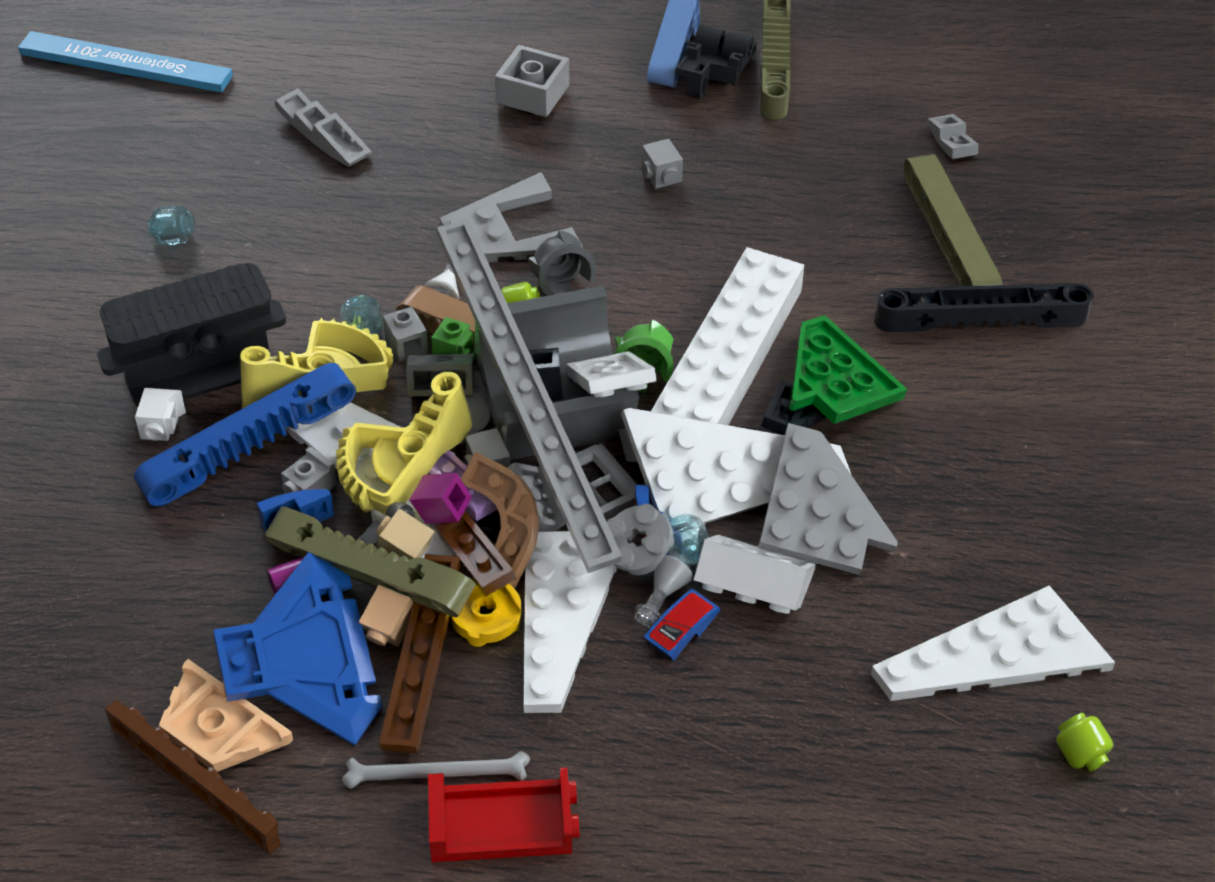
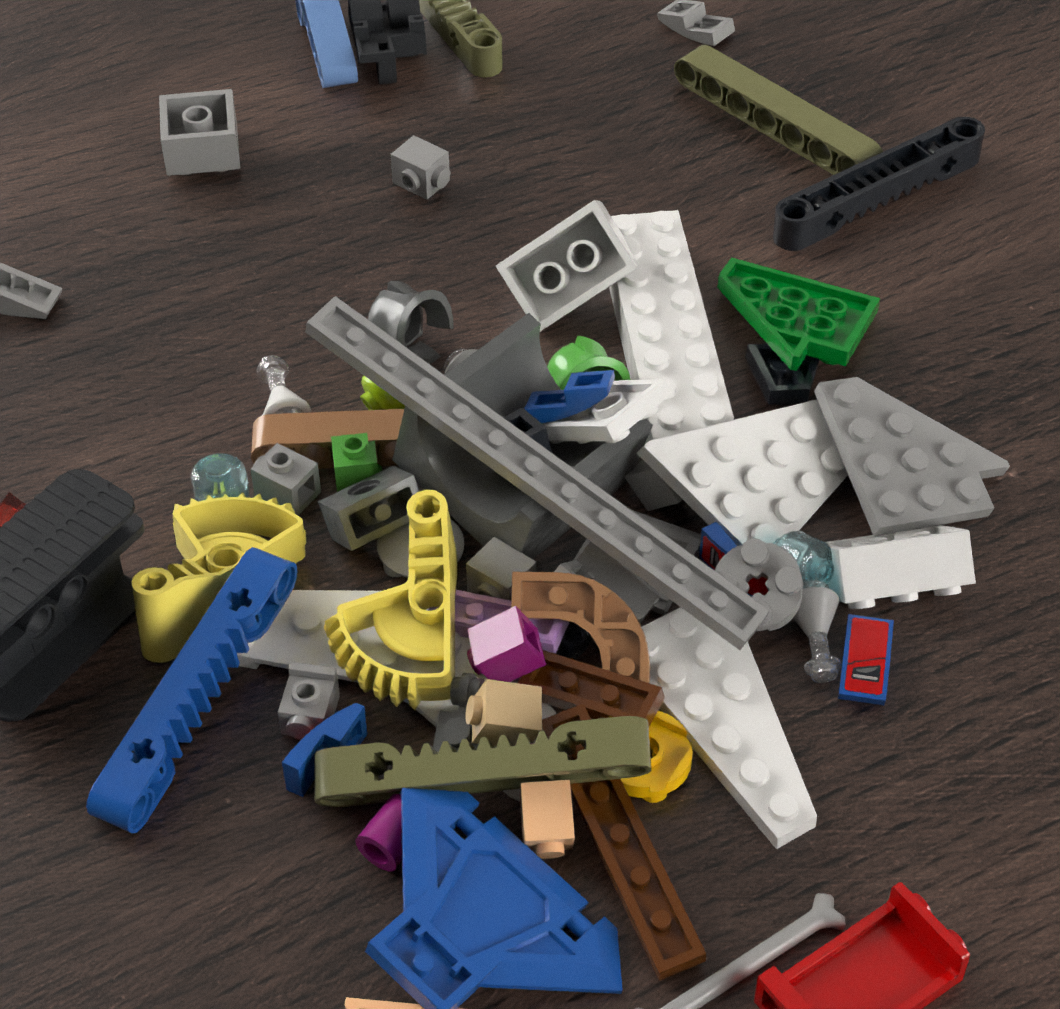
camera: 30 degrees left, 0 degrees up
(159, 413) = (53, 715): white window -> none
(490, 225) = (268, 324): light grey wing -> none
(597, 356) = (580, 393): none -> blue slope
(693, 268) = (568, 264): none -> white slope

